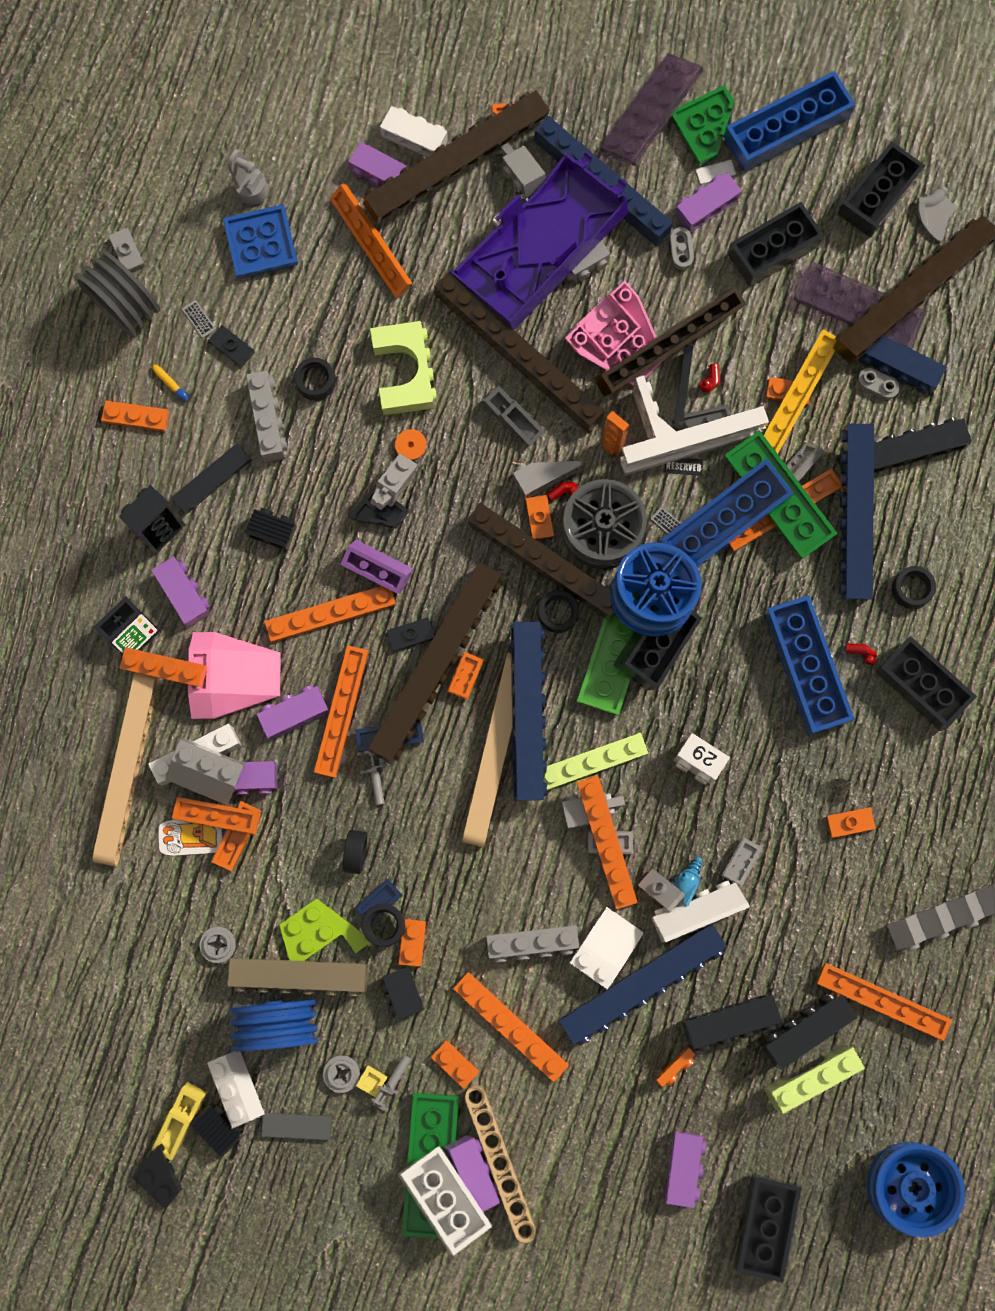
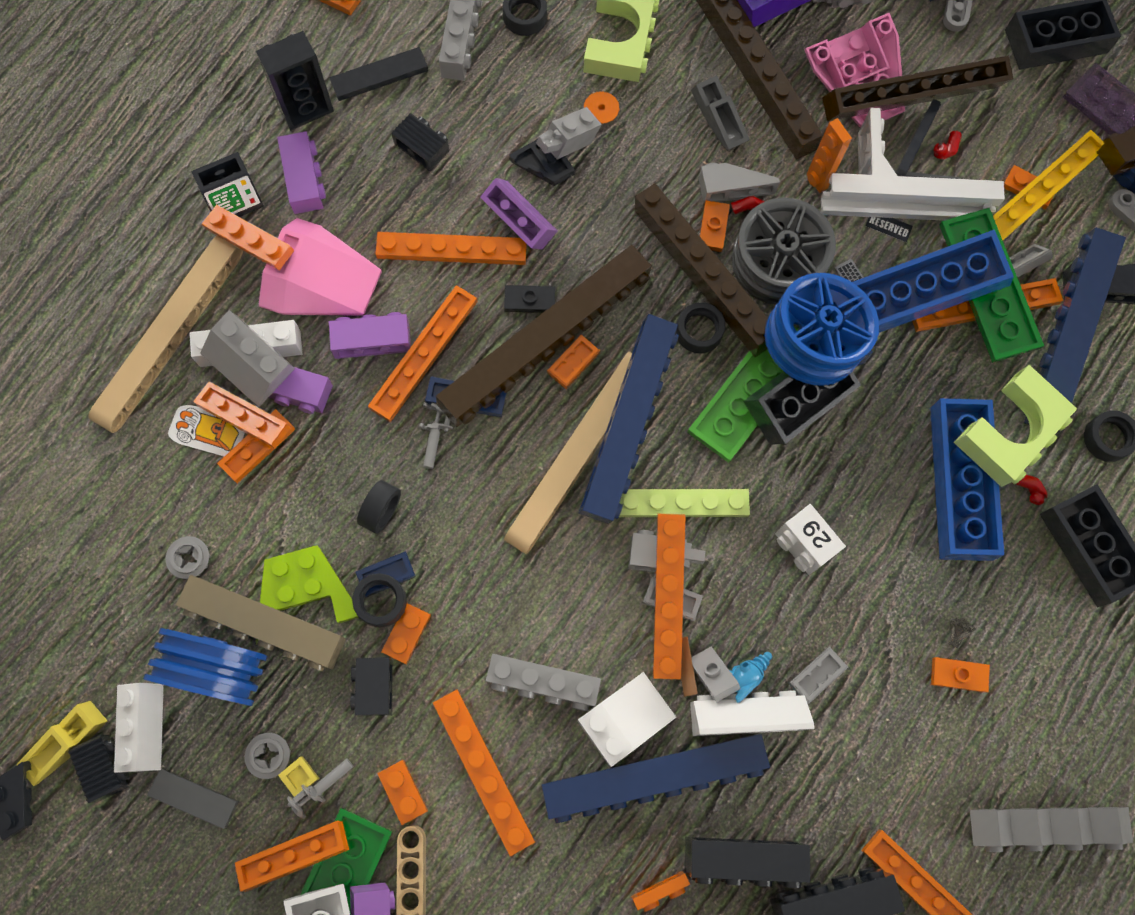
camera: 15 degrees right, 5 degrees down
(390, 1141) = (291, 856): none -> orange plate
(639, 893) = (687, 670): none -> medium nougat sticker
(855, 593) = (1046, 412): none -> yellowish green arch

